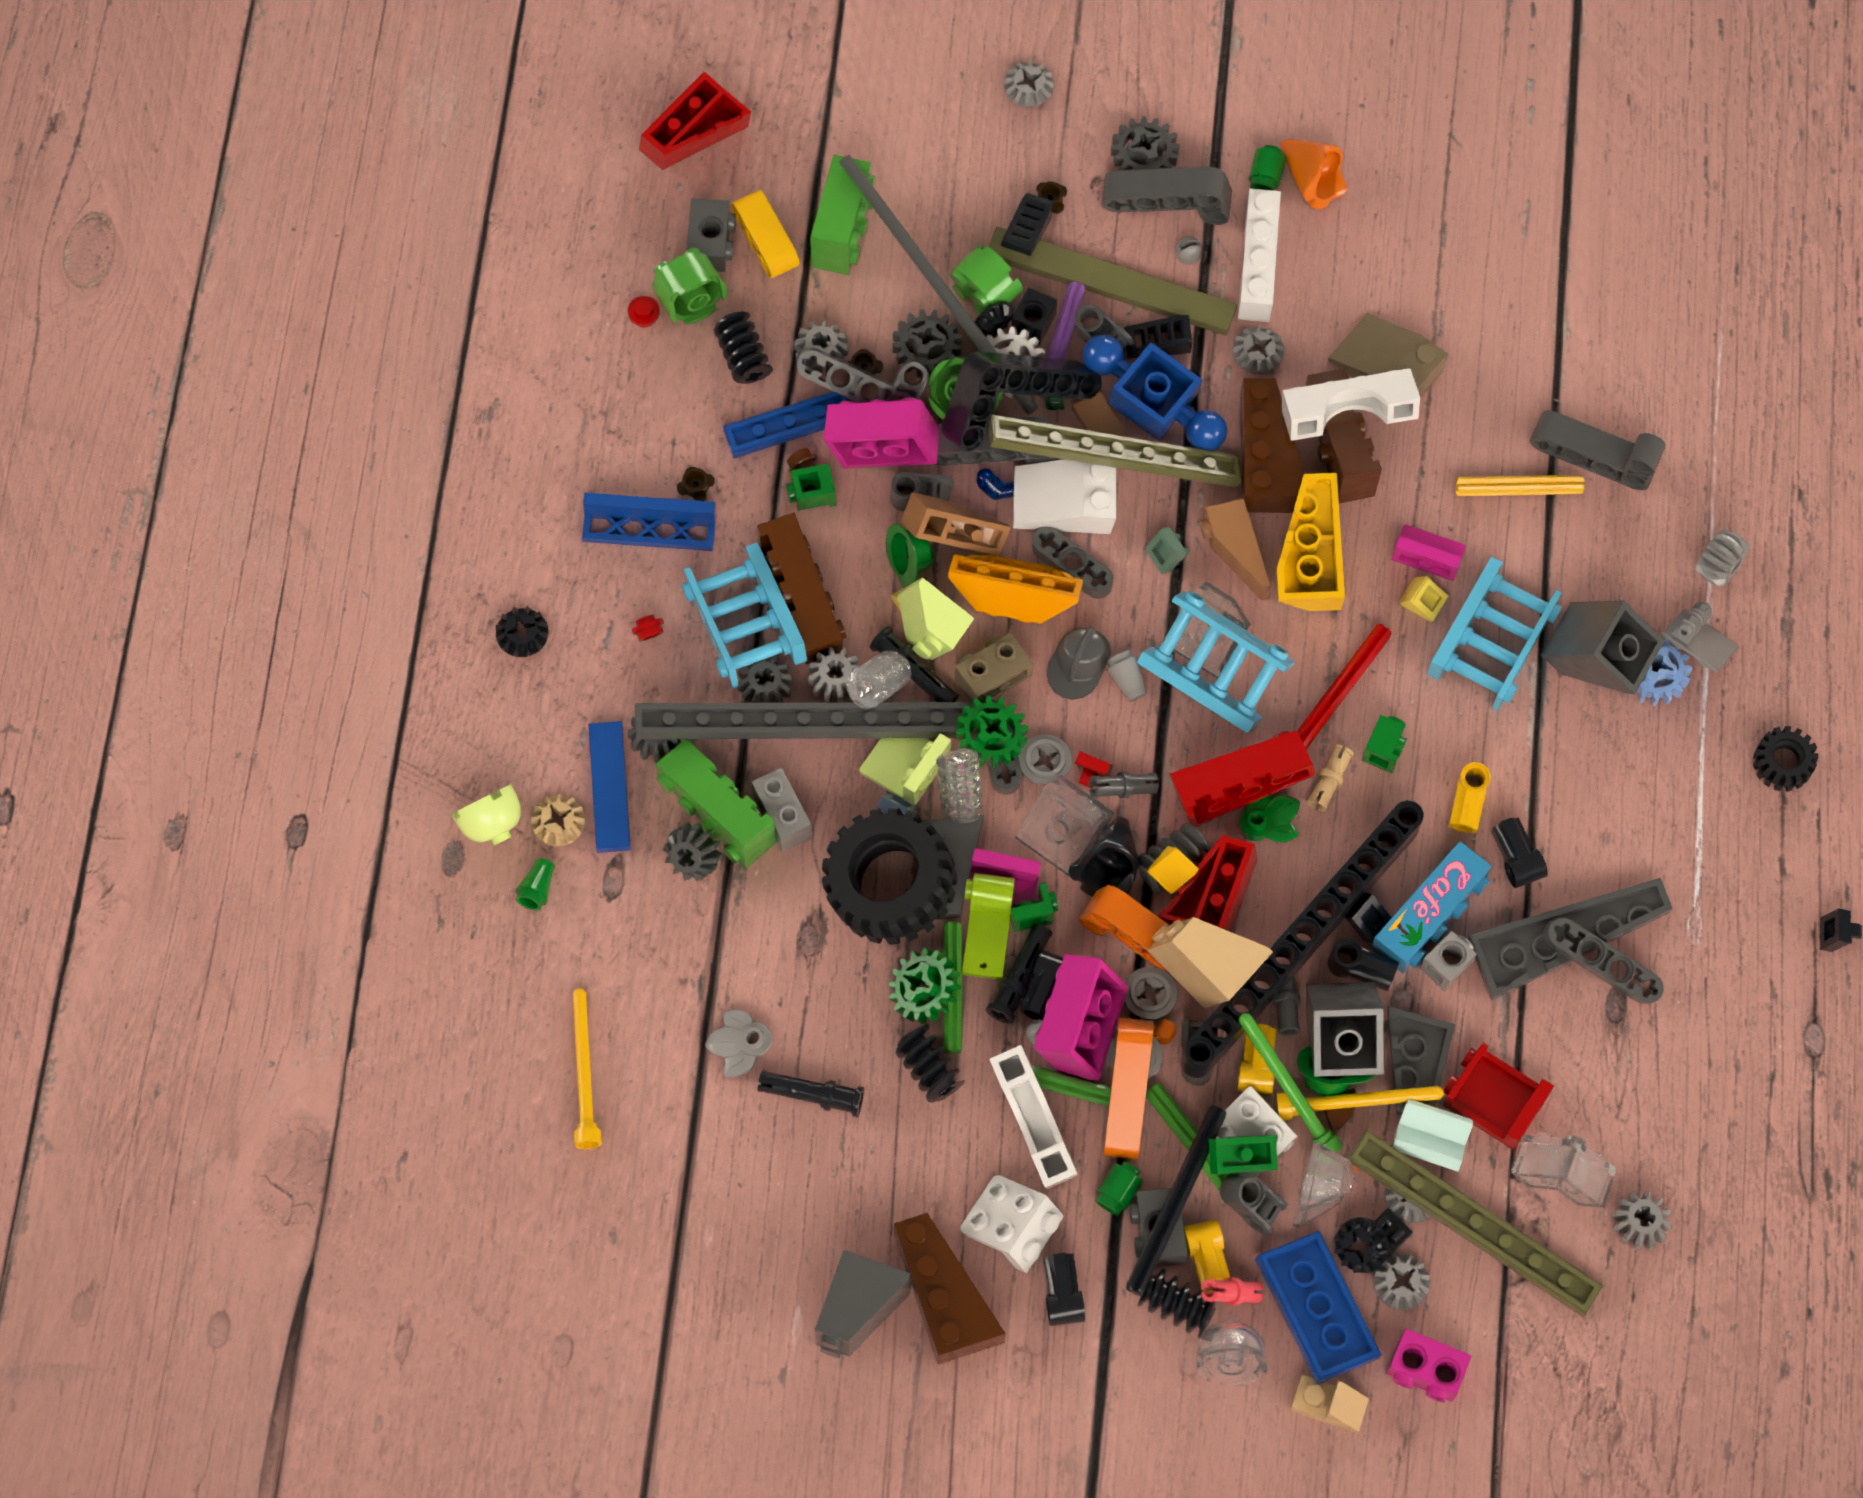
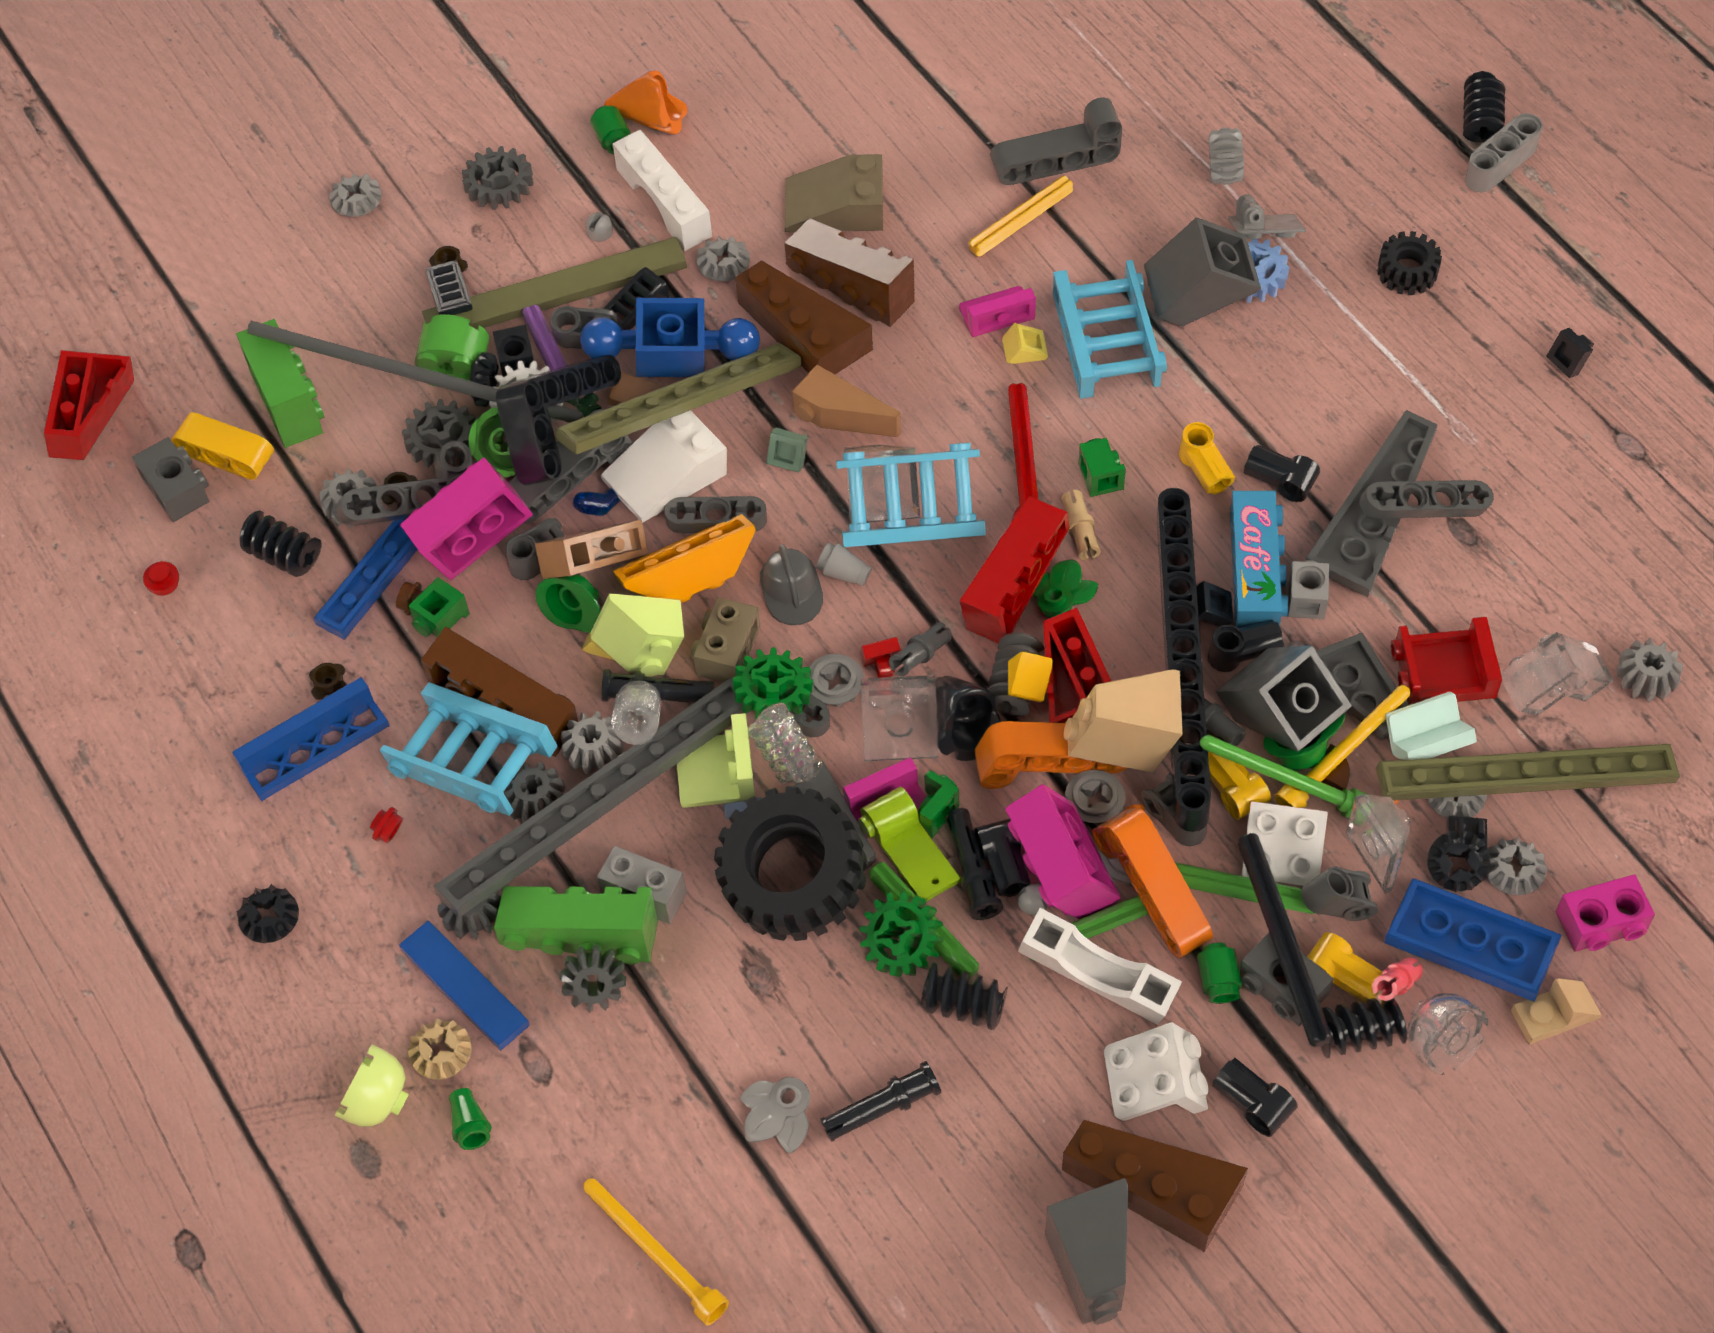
camera: 35 degrees left, 10 degrees down
(689, 286) = (188, 526): bright green brick -> none
(1169, 190) = (545, 189): dark grey beam -> none
(1243, 1154) = (1300, 858): green slope -> none
(1311, 556) = (912, 362): yellow wedge -> none
(1388, 395) = (866, 206): white arch -> none

